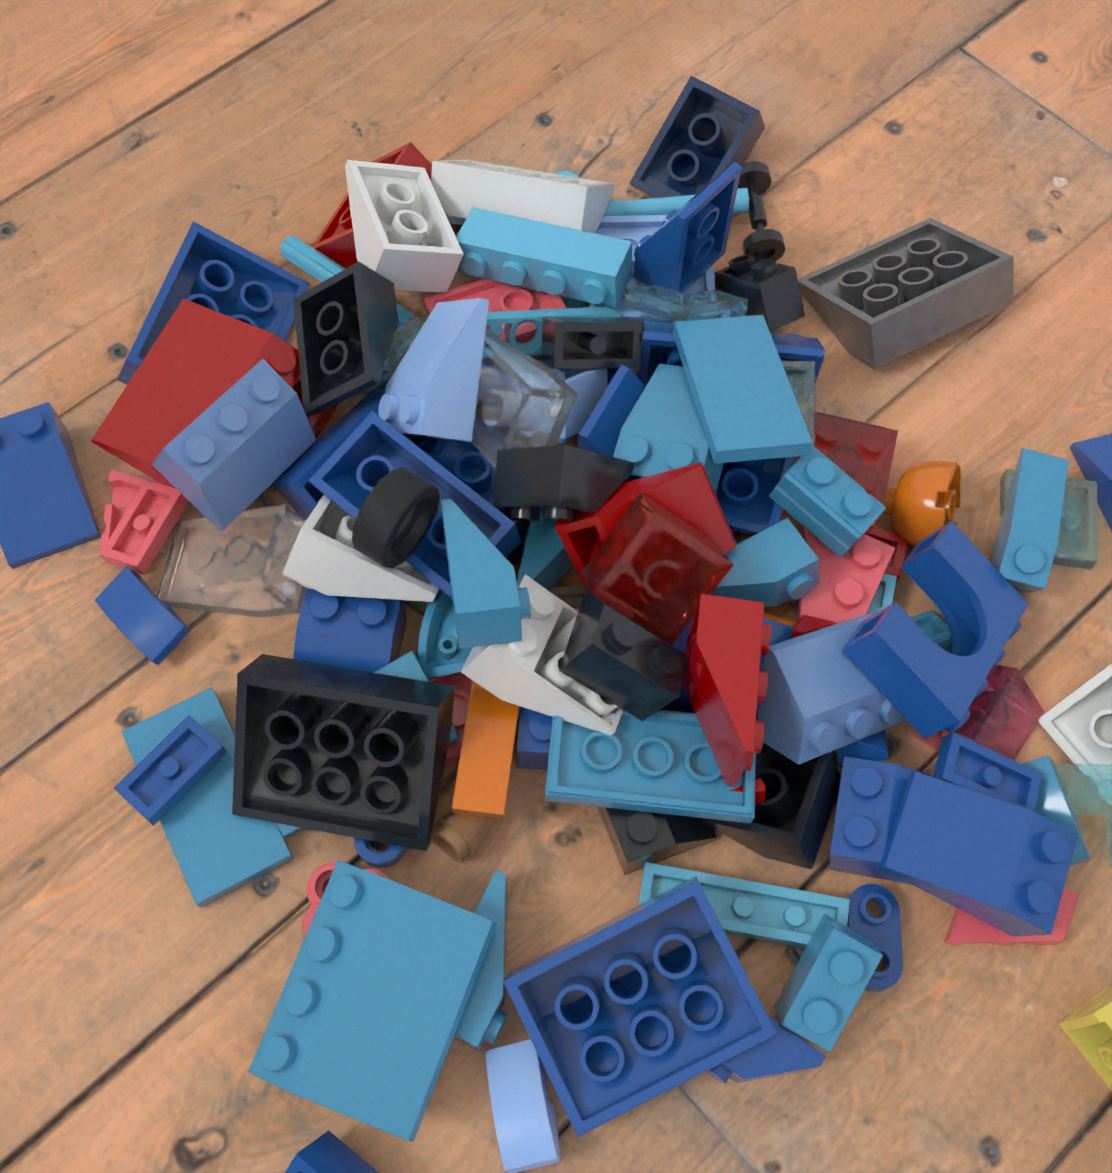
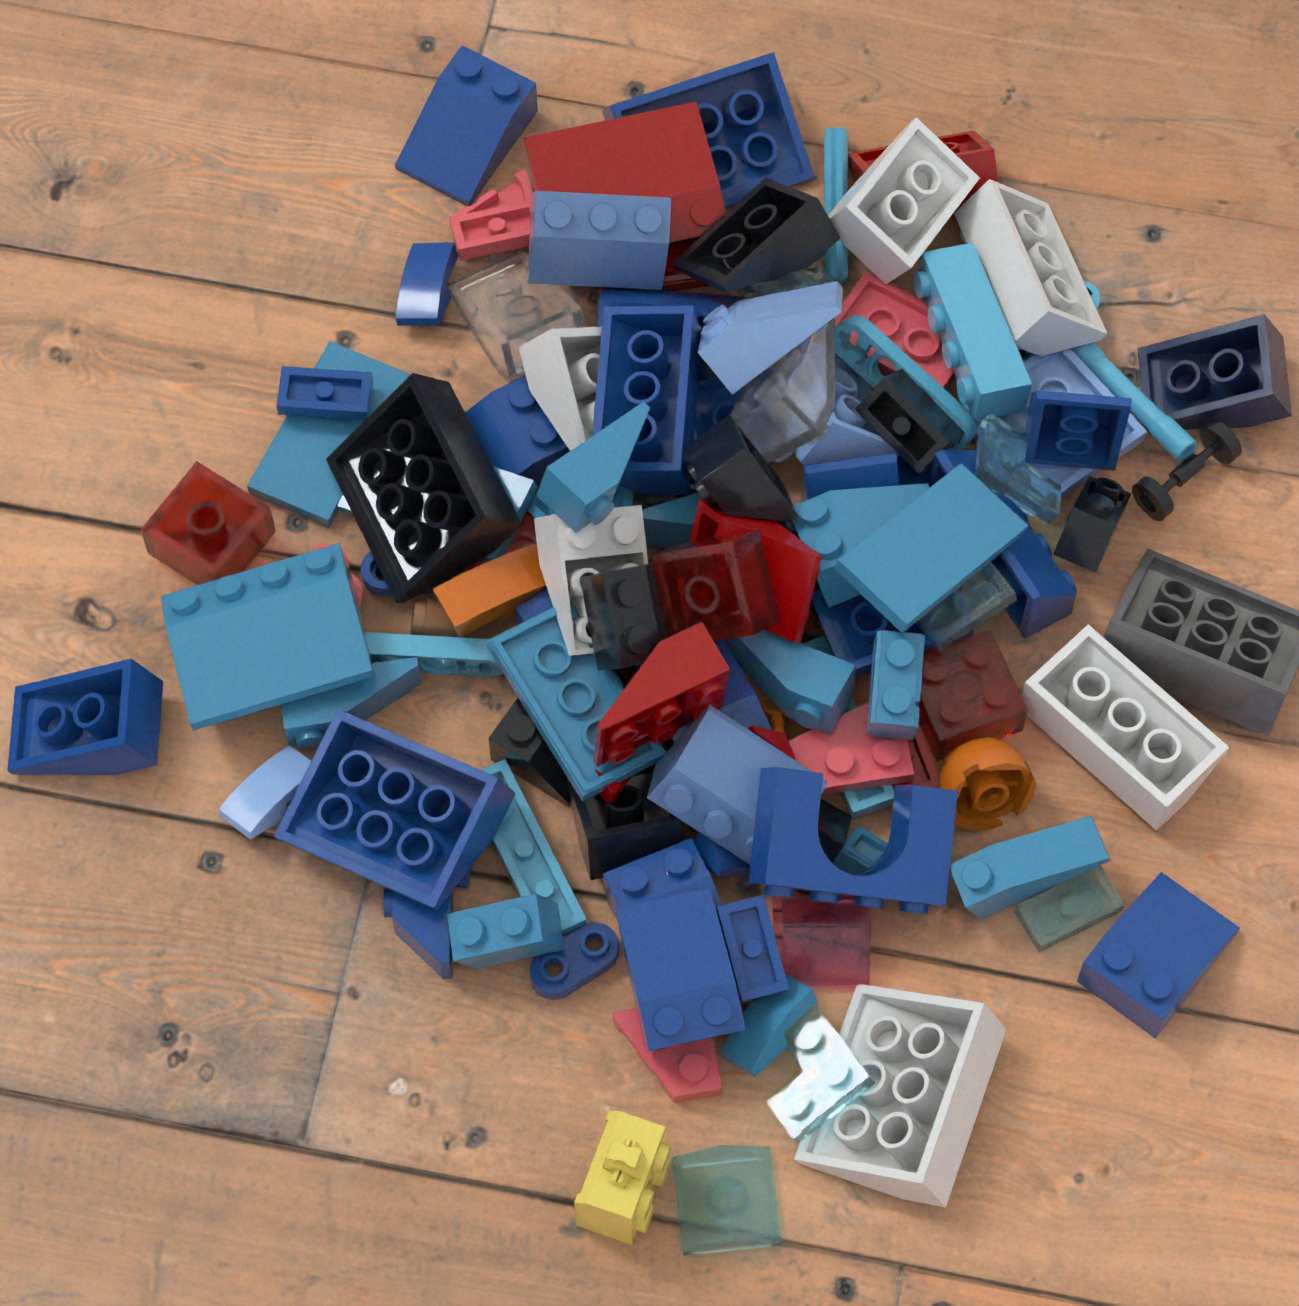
camera: 55 degrees right, 0 degrees up
(212, 973) = (208, 527): none -> clear red brick
(395, 517) = (606, 382): black tyre -> none
(498, 850) = (435, 653): none -> medium azure beam
(952, 381) = (1122, 726): none -> white slope

